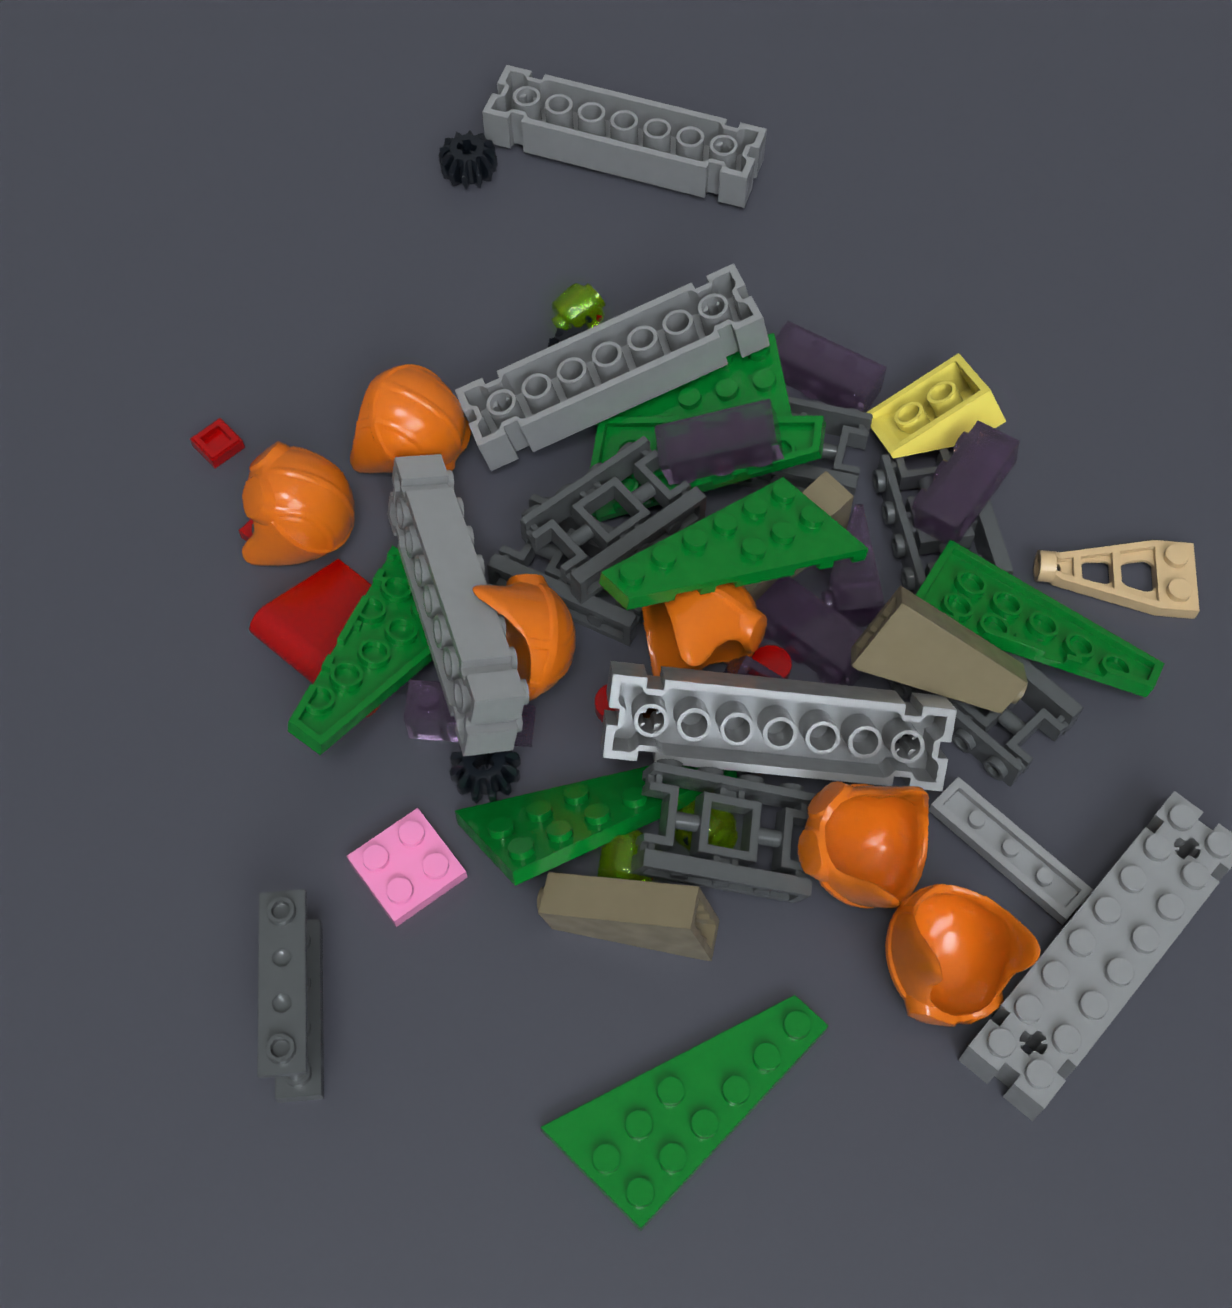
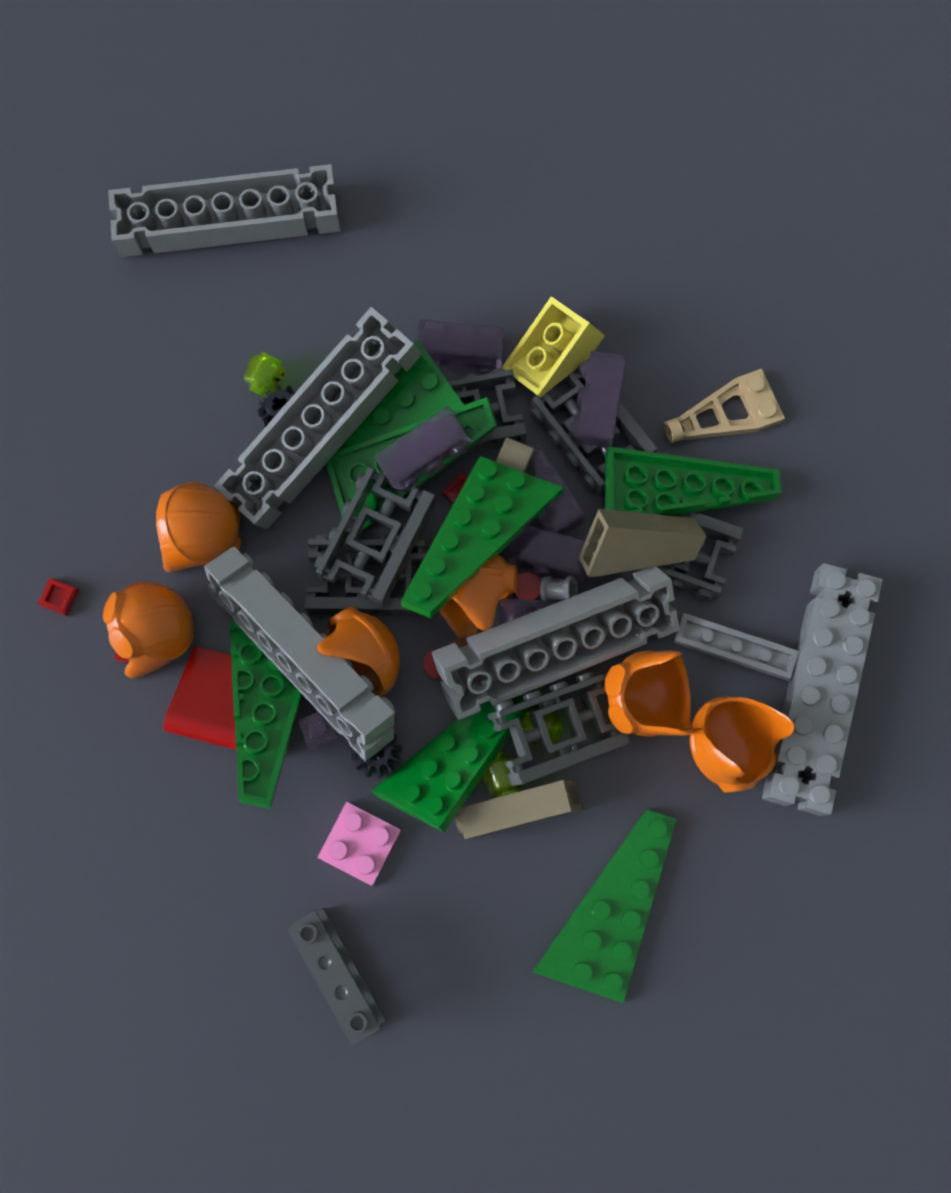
camera: 25 degrees left, 15 degrees up
(468, 159) = (117, 280): black gear -> none
(799, 670) = (558, 589): none -> light grey bush

